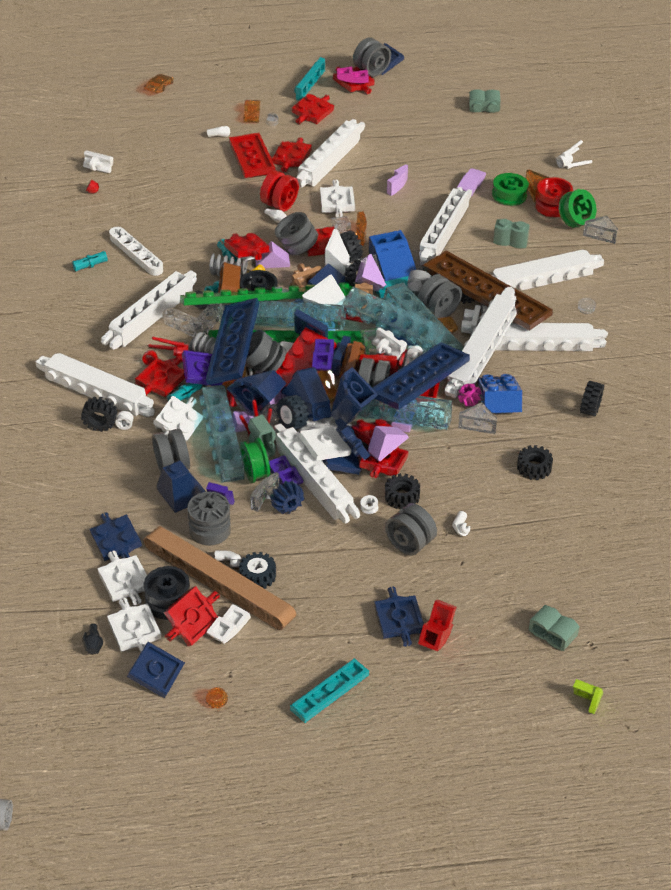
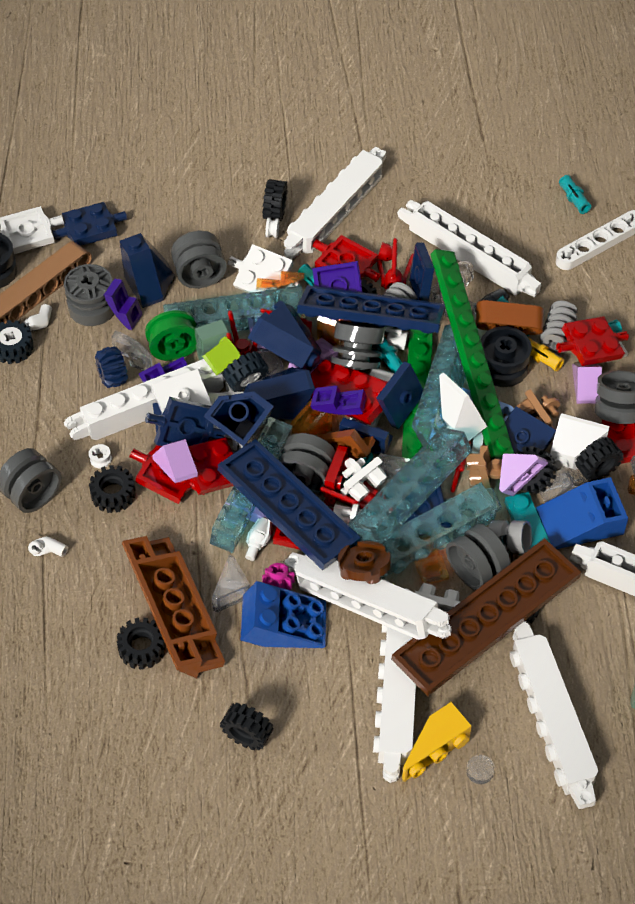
camera: 95 degrees right, 10 degrees up
(186, 324) = (421, 272): none -> dark blue plate
(197, 400) = (286, 280): none -> clear orange slope
(281, 419) = (221, 355): none -> lime tile
(468, 342) = (353, 563): none -> reddish brown plate
(500, 443) = (175, 604): none -> dark orange slope
(569, 313) = (440, 735): none -> yellow slope

